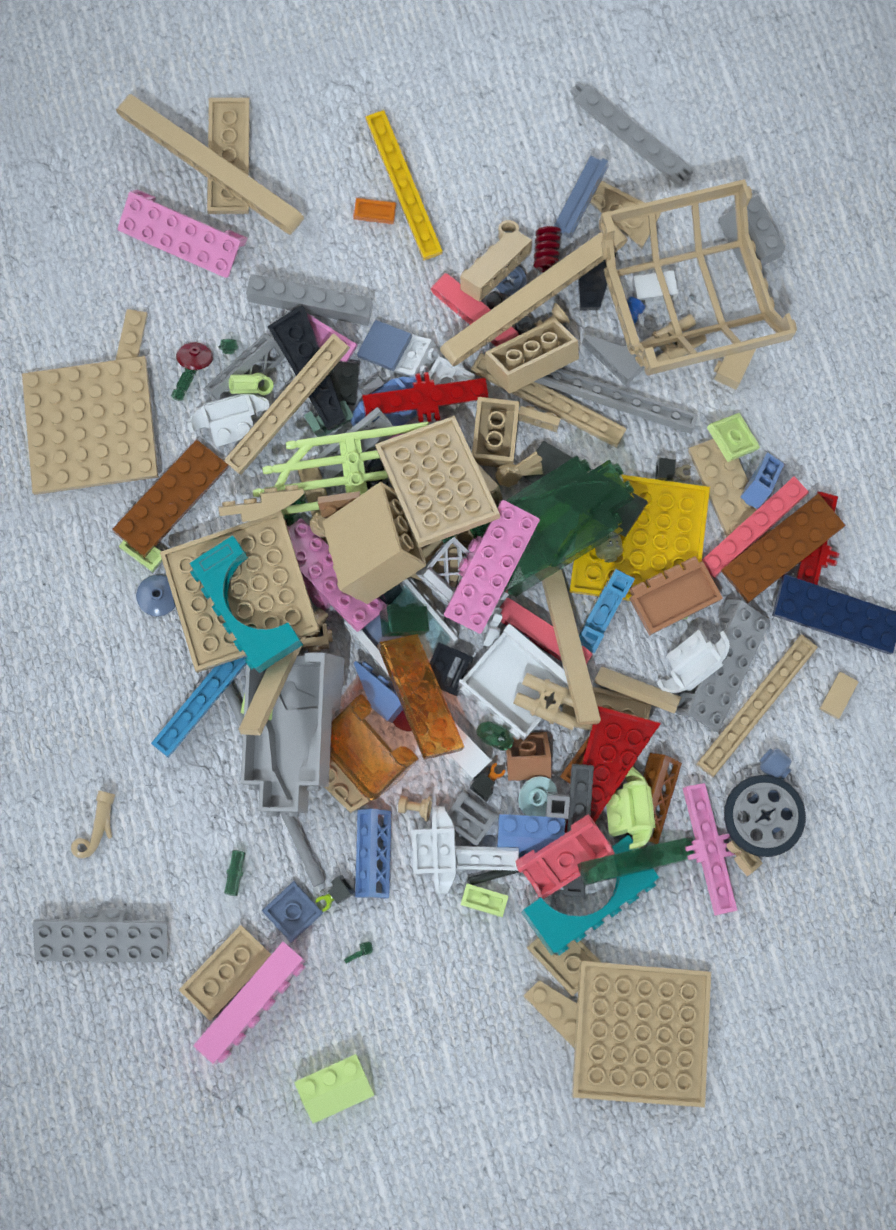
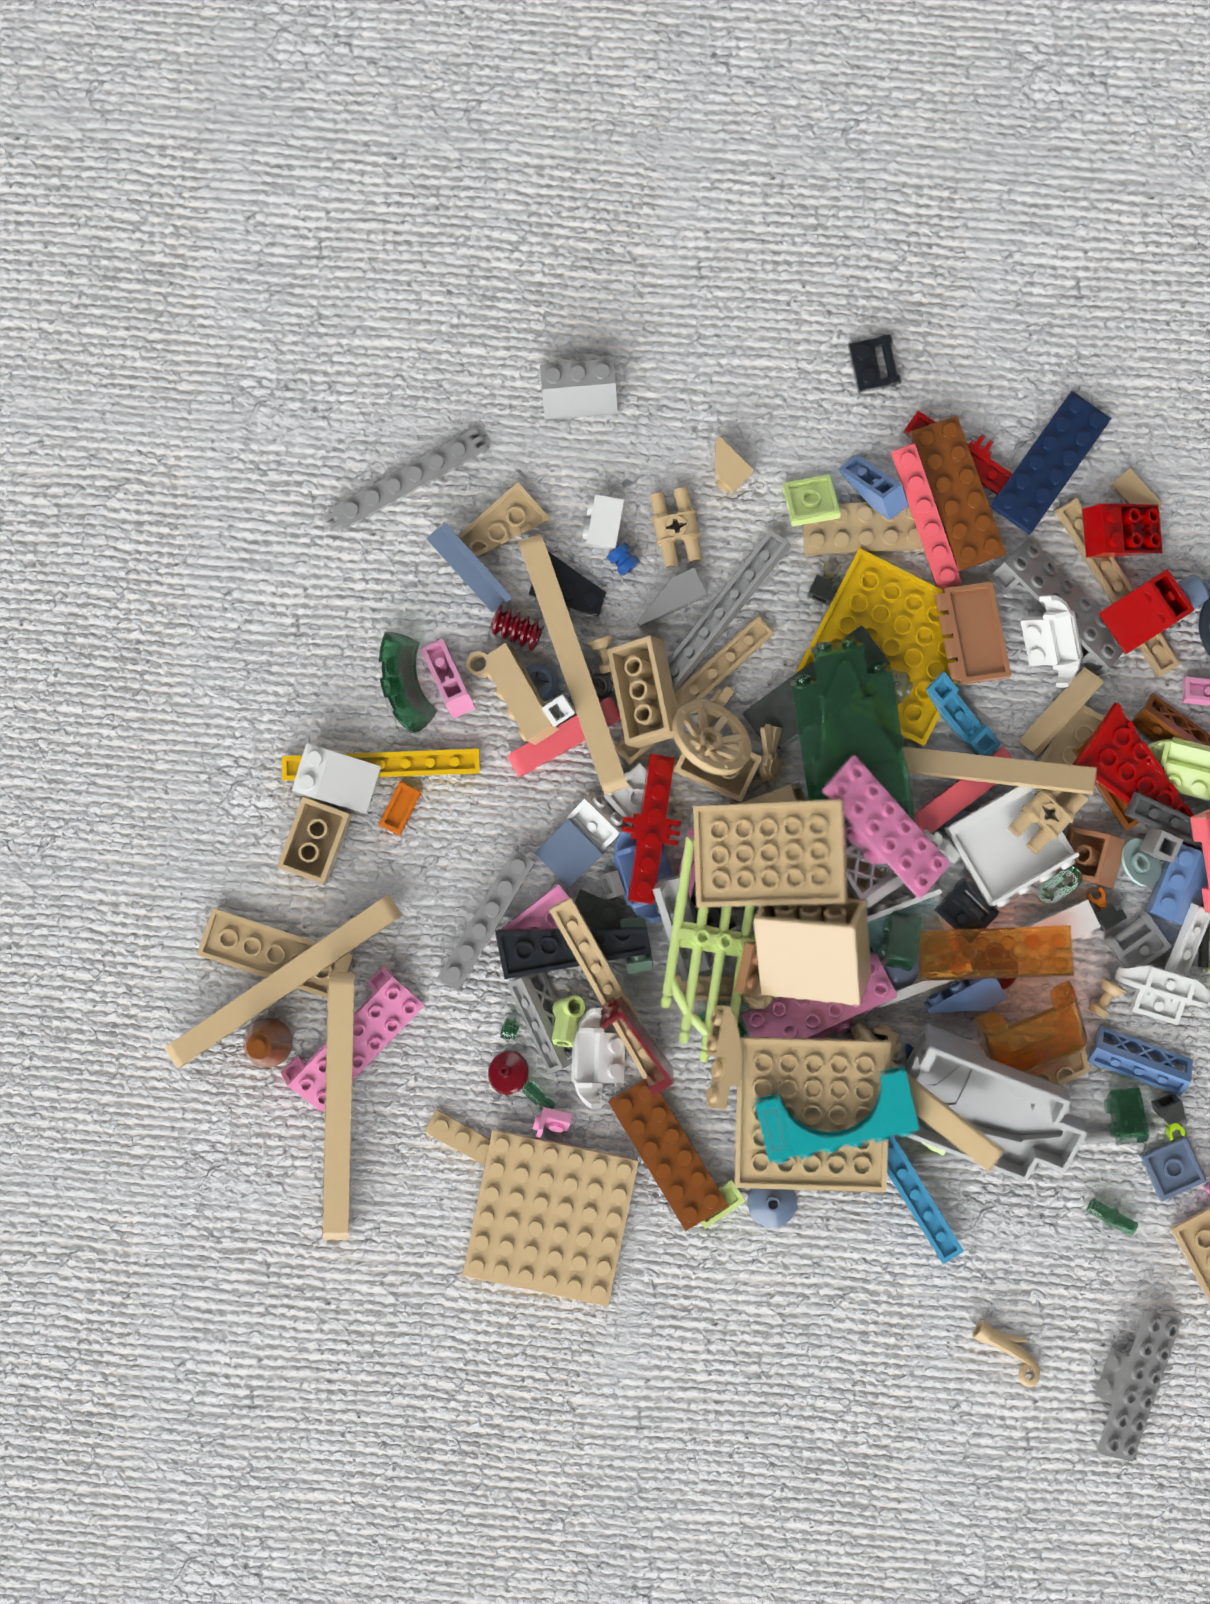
camera: 65 degrees left, 10 degrees up
(125, 232) = (338, 1105): none -> tan beam
(157, 170) = (267, 1042): none -> dark orange cone
(168, 400) = (553, 1119): none -> bright pink bracket
(254, 440) = (662, 1074): none -> dark red panel
(323, 854) = (1127, 1116): none -> clear green brick
(326, 153) = (314, 841): none -> tan brick
(380, 151) = (336, 778): none -> white slope
(474, 178) = (401, 682): none -> clear green brick
(487, 211) = (447, 678): none -> bright pink slope
(495, 294) = (559, 709): none -> white leg
(511, 411) = (709, 740): none -> tan wheel
(745, 728) = (1146, 611): none -> red slope
(784, 327) = (721, 397): tan window -> none
(805, 689) = (1121, 530): none -> red slope
(858, 447) = (866, 366): none -> black plate

